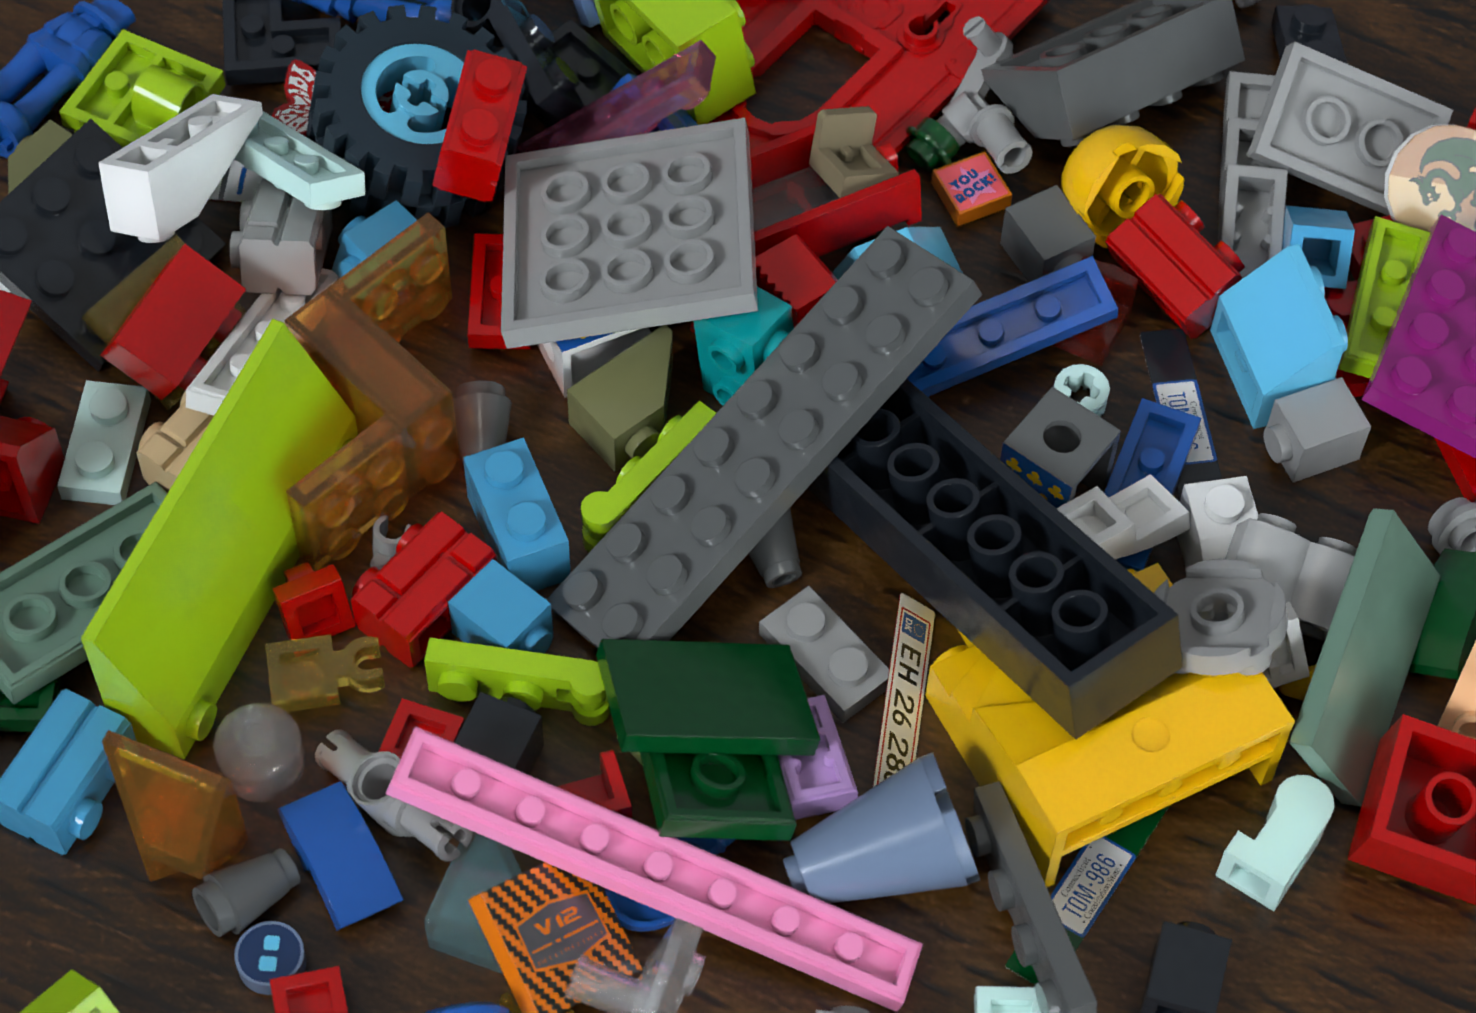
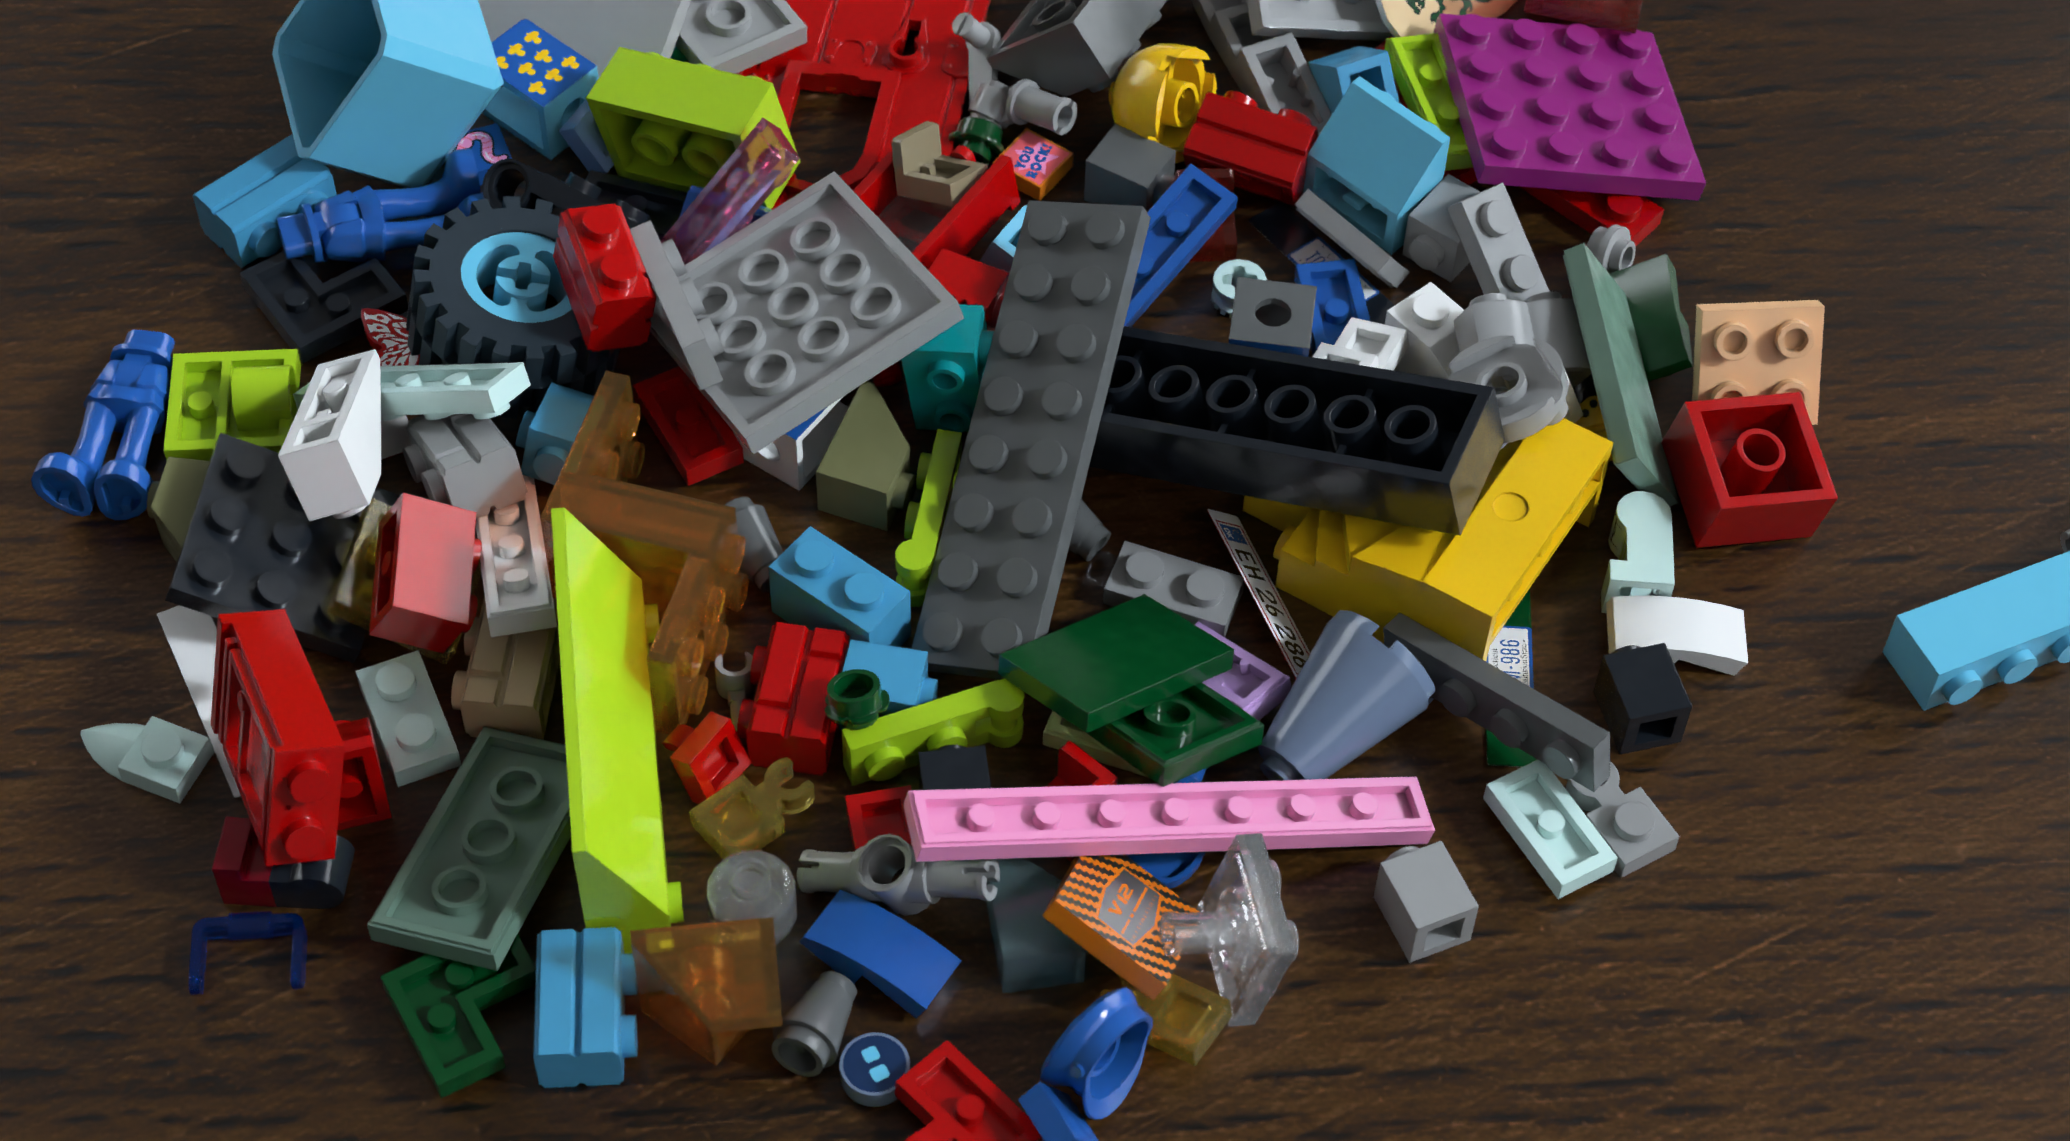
camera: 30 degrees left, 5 degrees down
(453, 616) = (855, 699): none -> dark green plate
(523, 180) = (680, 304): none -> light grey plate
(1214, 397) = (1351, 239): none -> light grey tile
(1269, 933) = (1690, 628): none -> white slope
(1341, 472) = (1497, 244): none -> light grey plate

